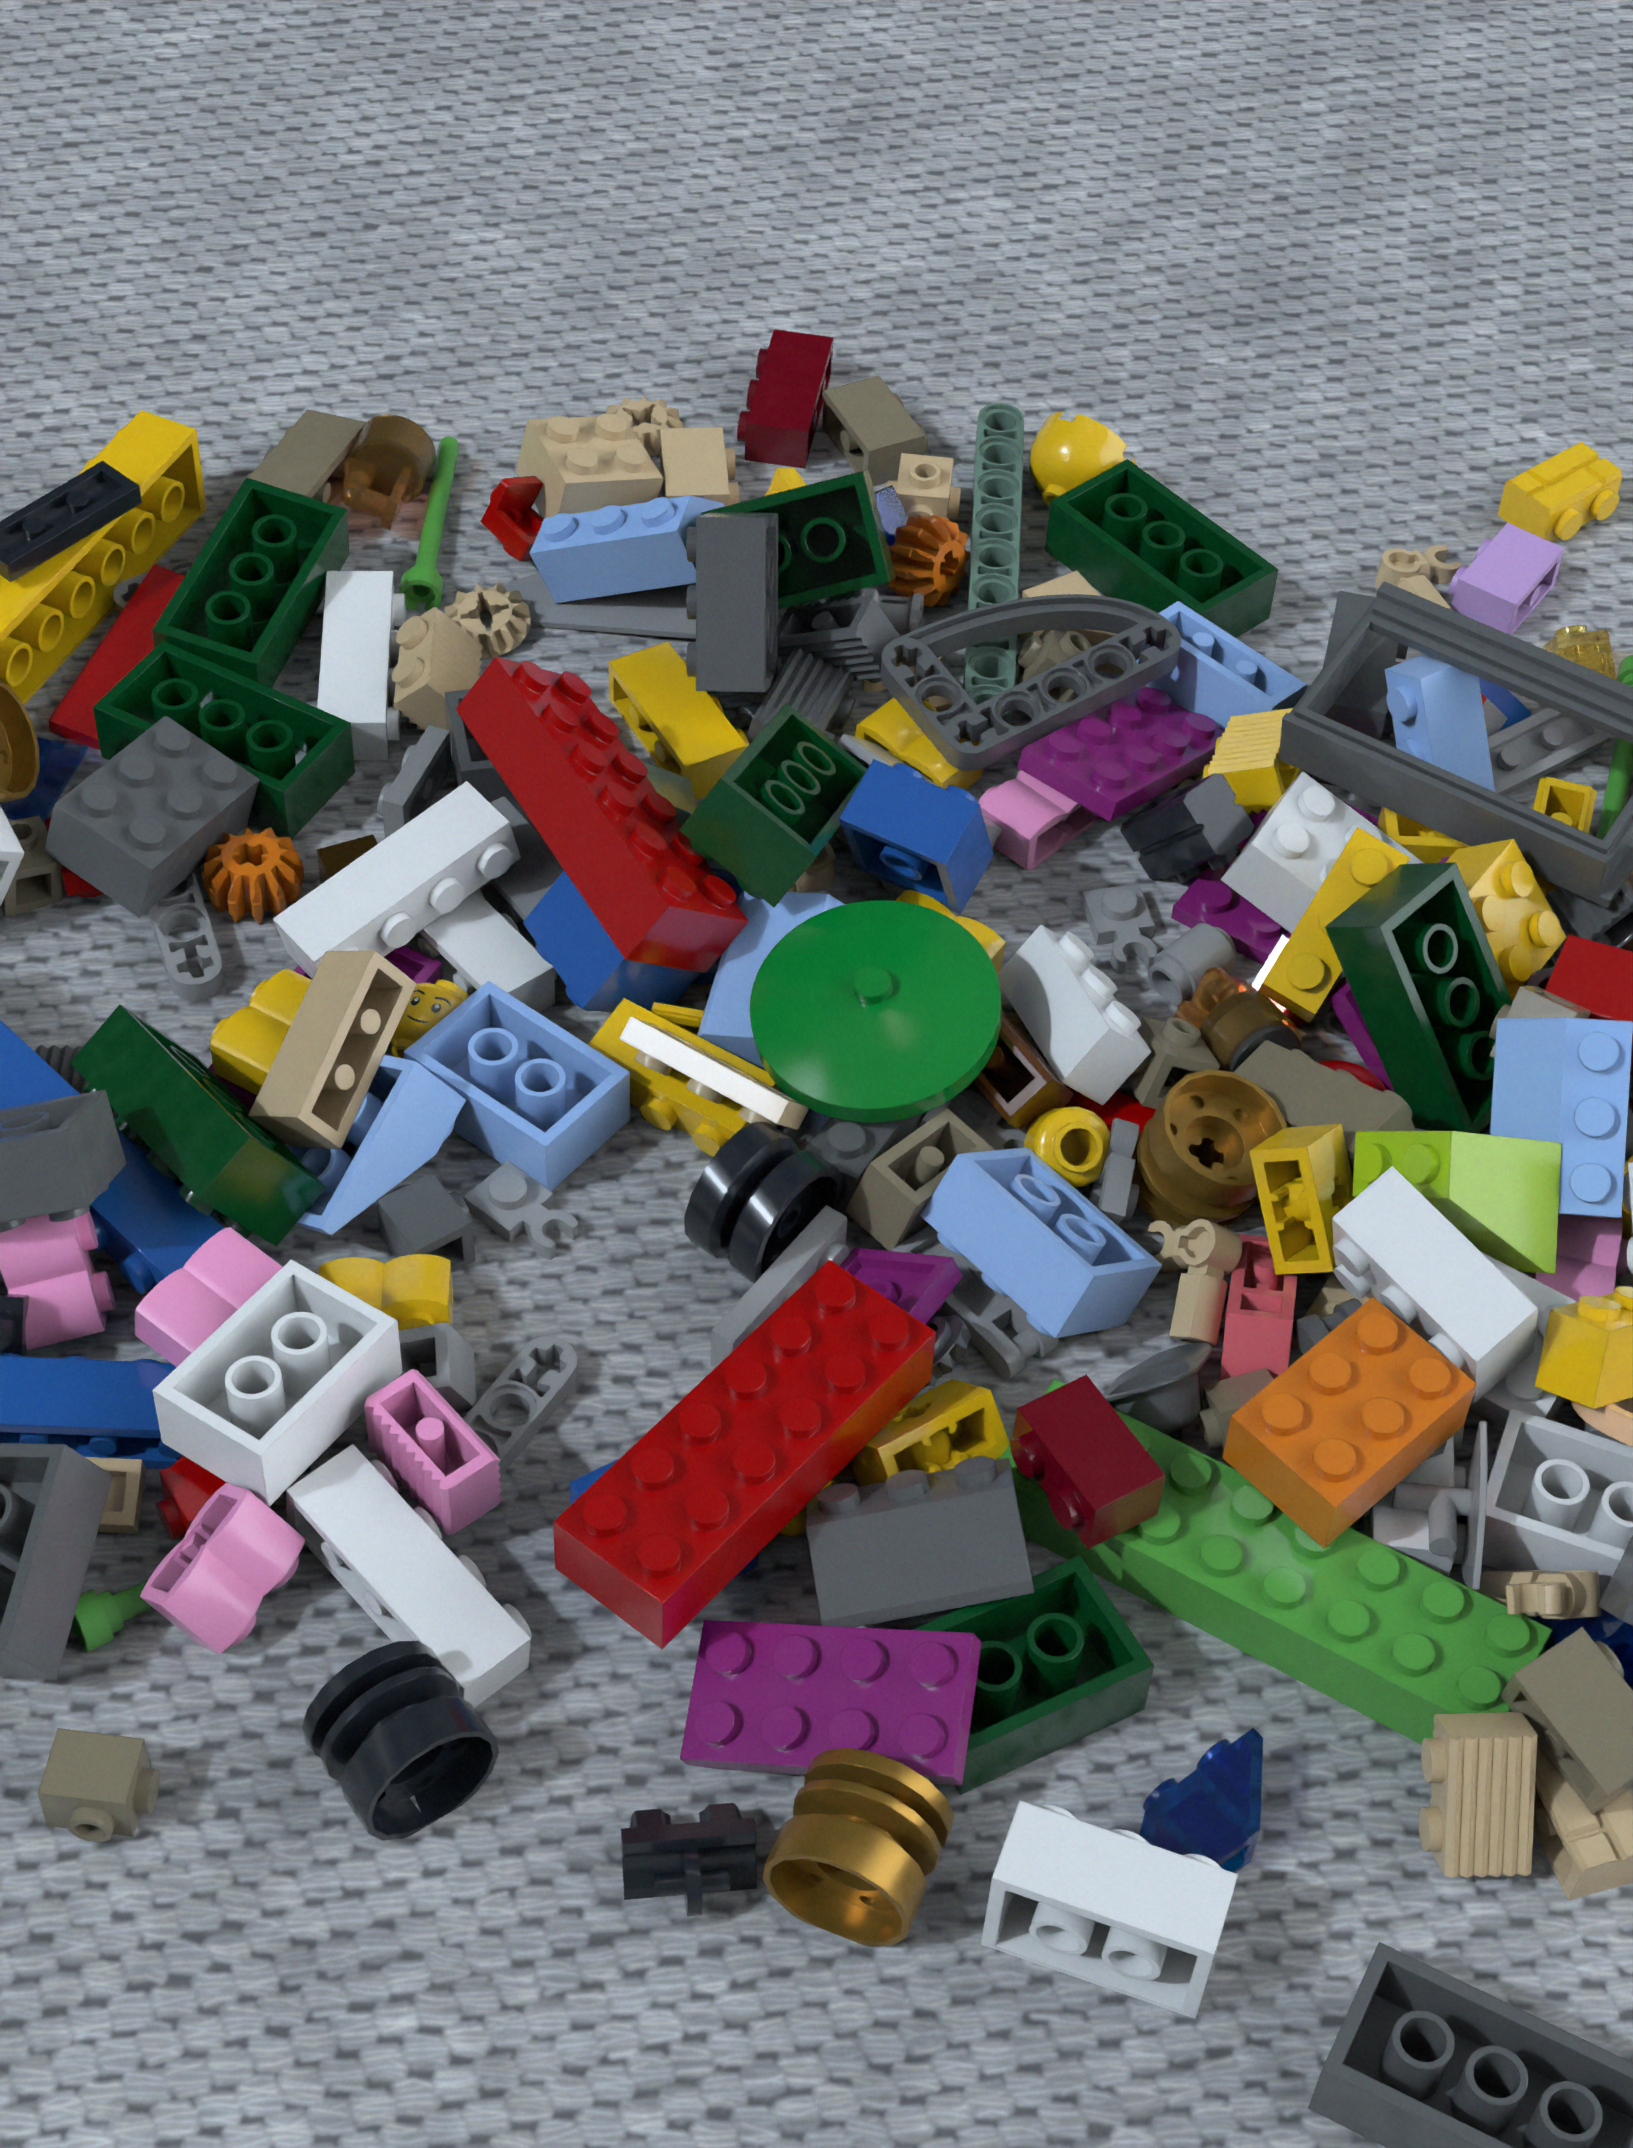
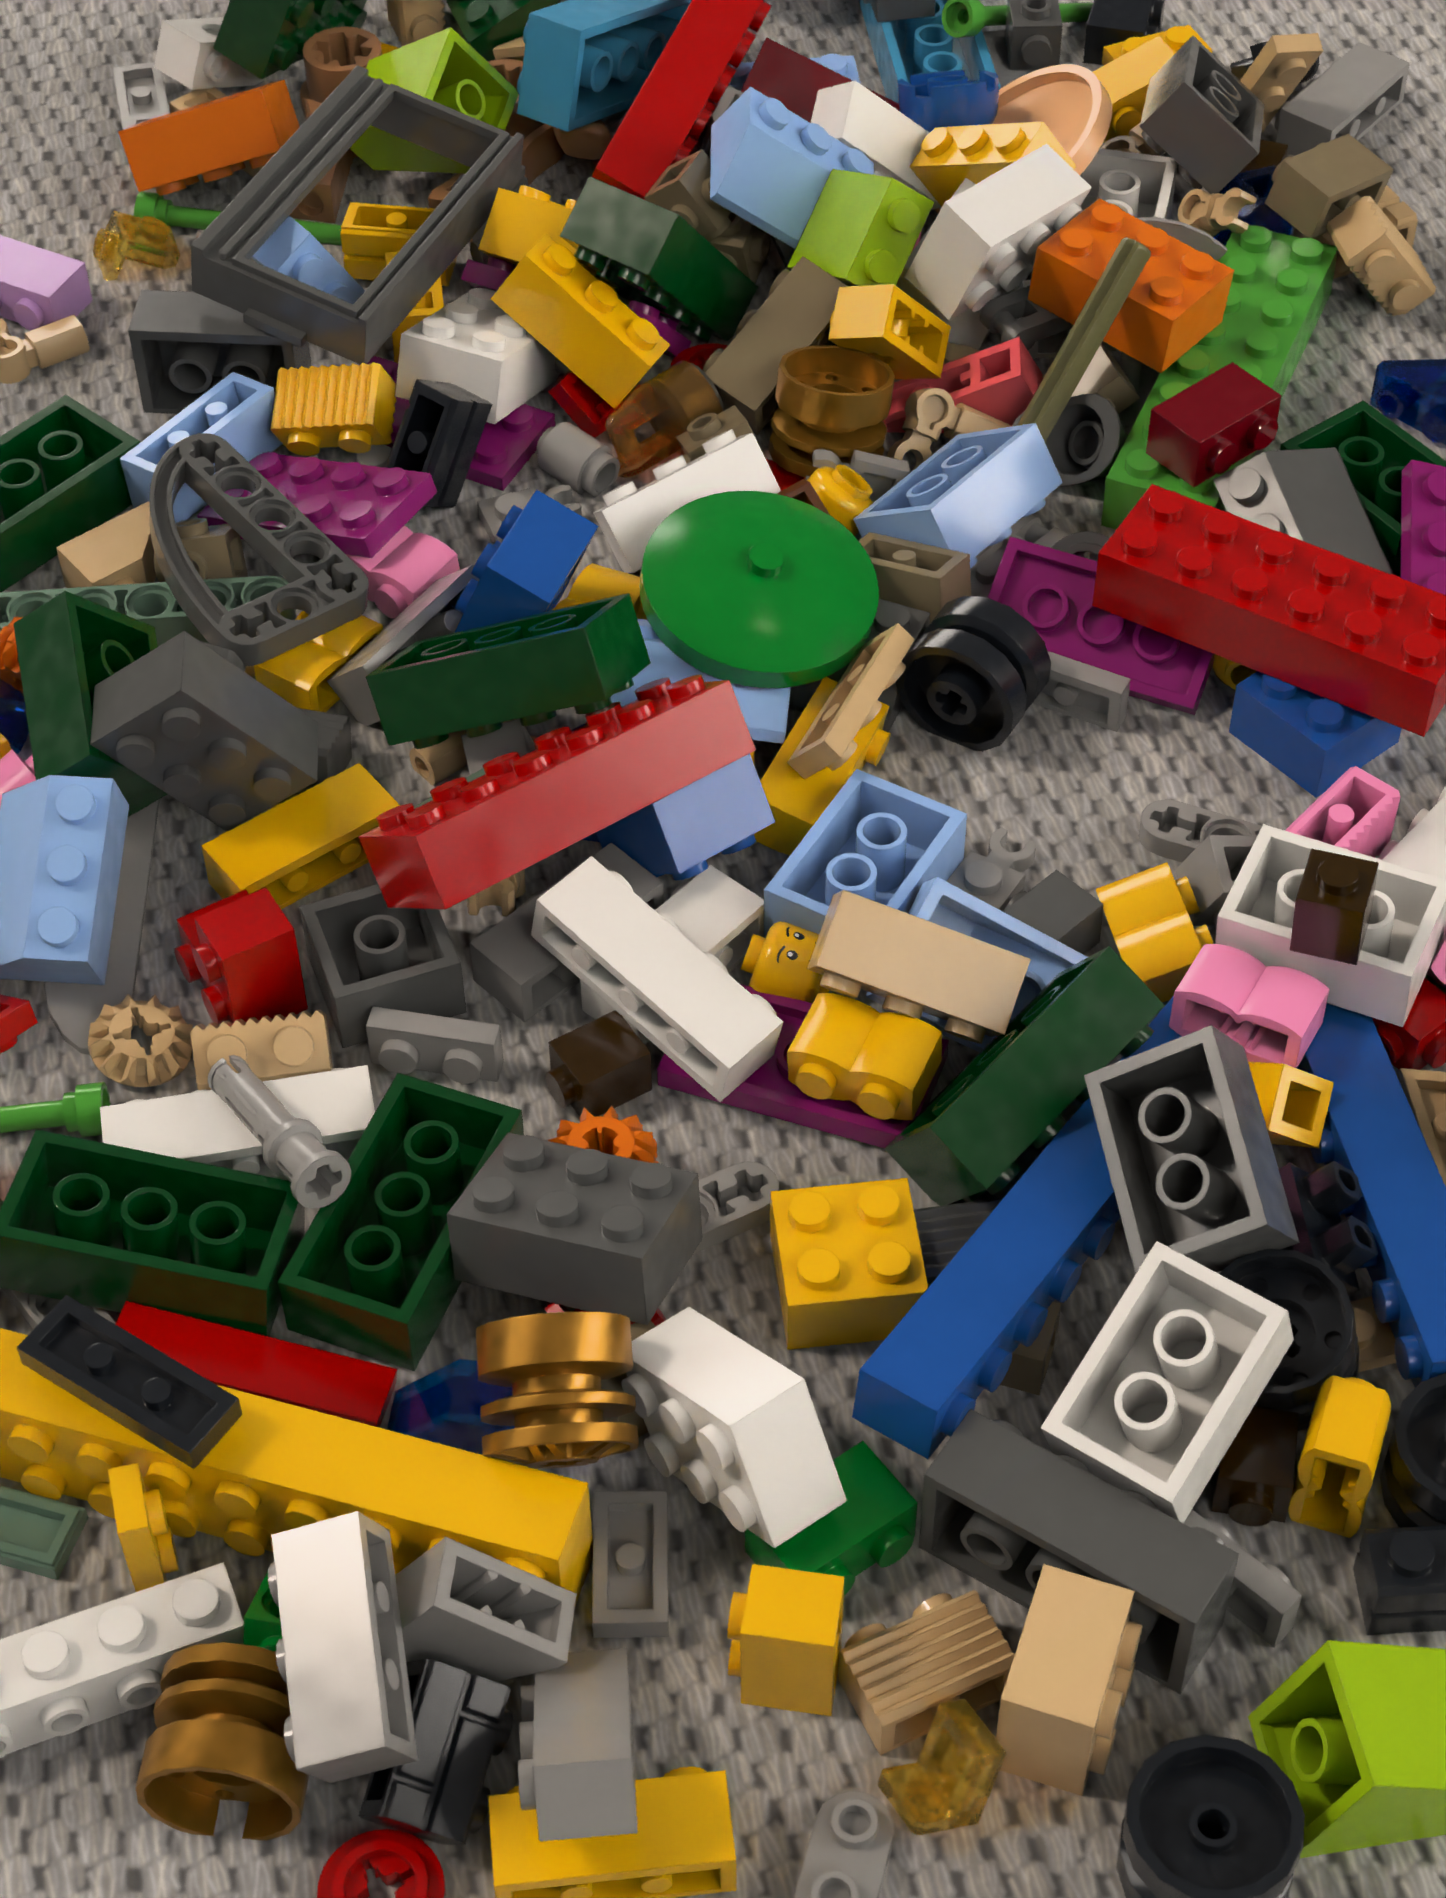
camera: 95 degrees left, 0 degrees up
(73, 988) = (845, 1261): none -> yellow brick
(102, 1324) = (1291, 1103): none -> yellow brick
(229, 1313) = (1333, 906): none -> dark brown brick
(282, 643) = (289, 1144): none -> light grey pin
(520, 632) = (243, 958): none -> red brick
(1221, 1345) = (1086, 335): none -> olive axle

